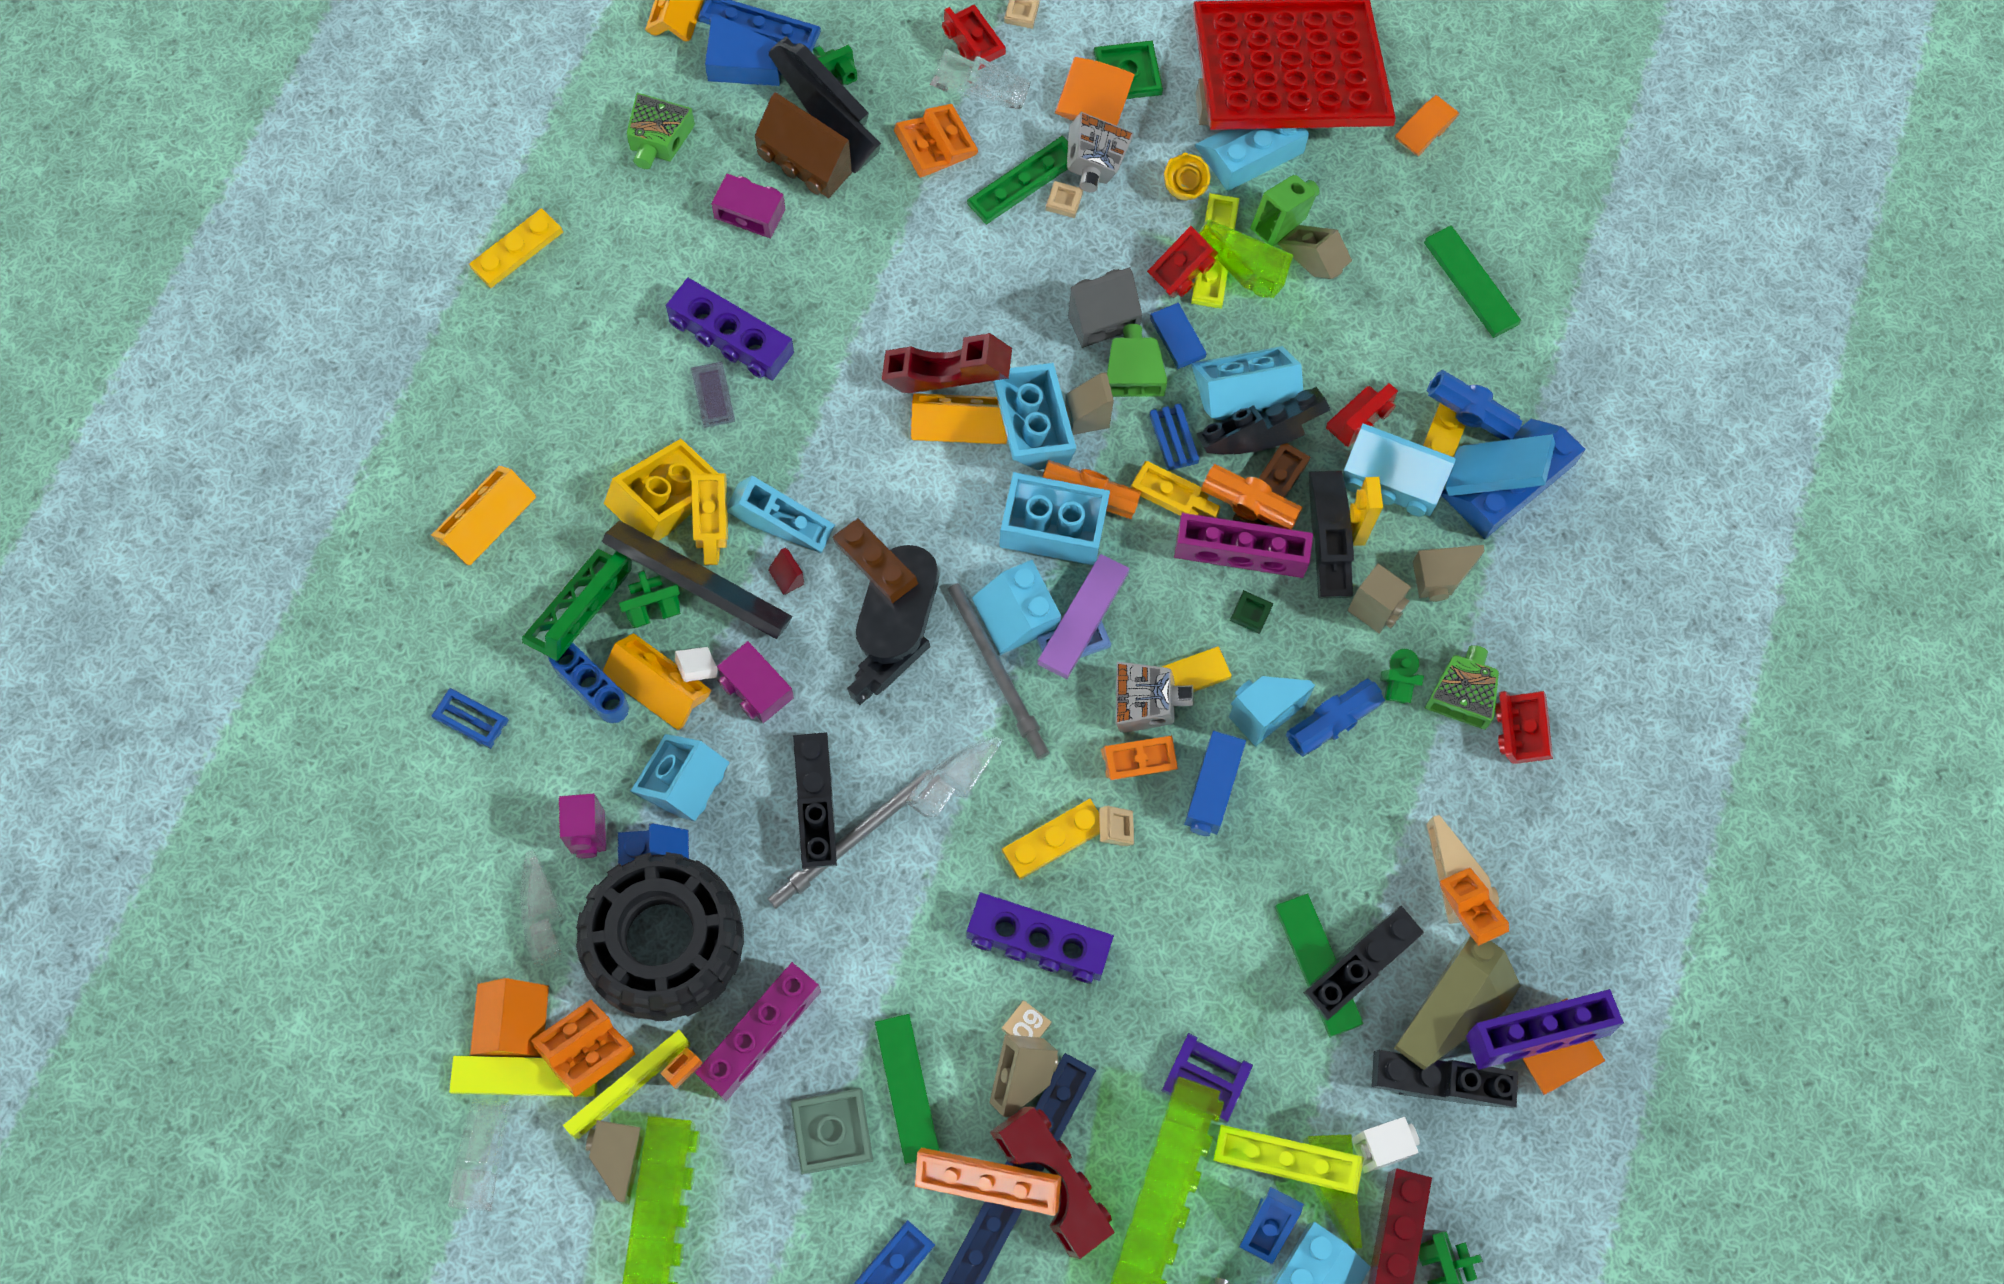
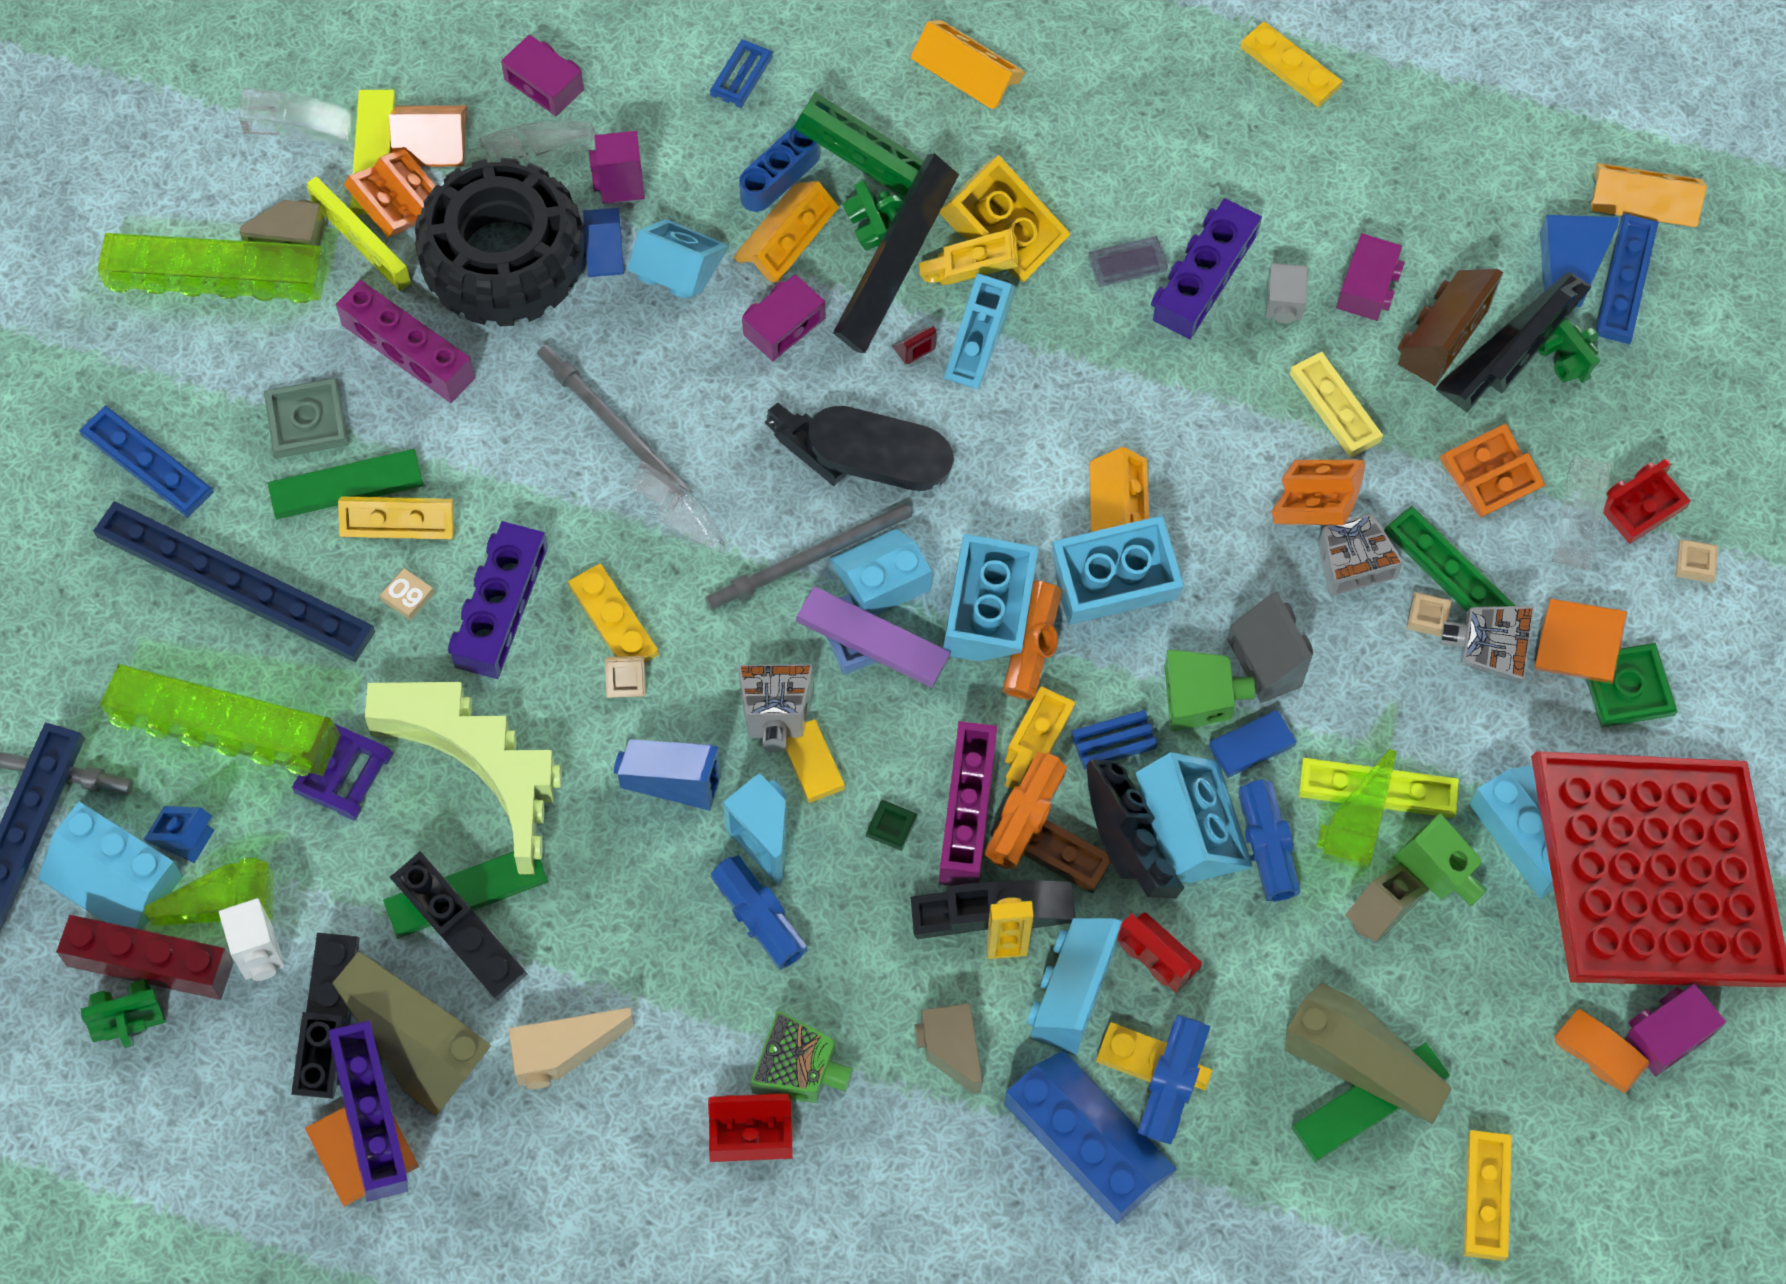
camera: 90 degrees right, 5 degrees down
(454, 904) = (543, 74): none -> magenta brick
(657, 129) = (1457, 180): bright green torso -> none
(681, 1067) = (365, 269): orange slope -> none
(695, 664) = (803, 261): white tile -> none
(760, 270) = (1286, 292): none -> light grey brick
(815, 800) = (645, 382): black slope -> none
(869, 244) = (1336, 404): none -> light yellow plate
(875, 560) = (930, 423): reddish brown plate -> none
(916, 370) = (1165, 470): dark red arch -> none
(950, 1035) = (396, 517): none -> yellow plate
(958, 261) = (1319, 492): none -> orange slope
(988, 1181) = (238, 548): tile -> none
(1011, 243) = (1357, 555): none -> torso
(1022, 1072) = (354, 584): dark tan slope -> none
(1079, 1220) = (272, 581): dark red arch -> none
(1090, 405) = (1137, 637): dark tan slope -> none
(1139, 758) = (703, 696): orange hinge -> none
(1183, 262) = (1346, 740): red bracket -> none
(1188, 171) = (1475, 734): yellow hair -> none
(1188, 944) = (443, 719): none -> yellowish green arch
(1265, 328) = (1269, 840): none -> blue piece
(1289, 1159) = (243, 842): neon yellow tile -> none
(1380, 599) = (902, 954): dark tan brick -> none
(1401, 676) = (802, 978): green hips -> none
(1412, 74) = (1675, 1028): none -> magenta brick
(1434, 282) = (1357, 1047): none -> olive wedge
(1473, 906) = (517, 1042): orange slope -> none
(1501, 465) = (1088, 1102): dark azure tile -> none
(1541, 210) = (1487, 1195): none -> yellow plate

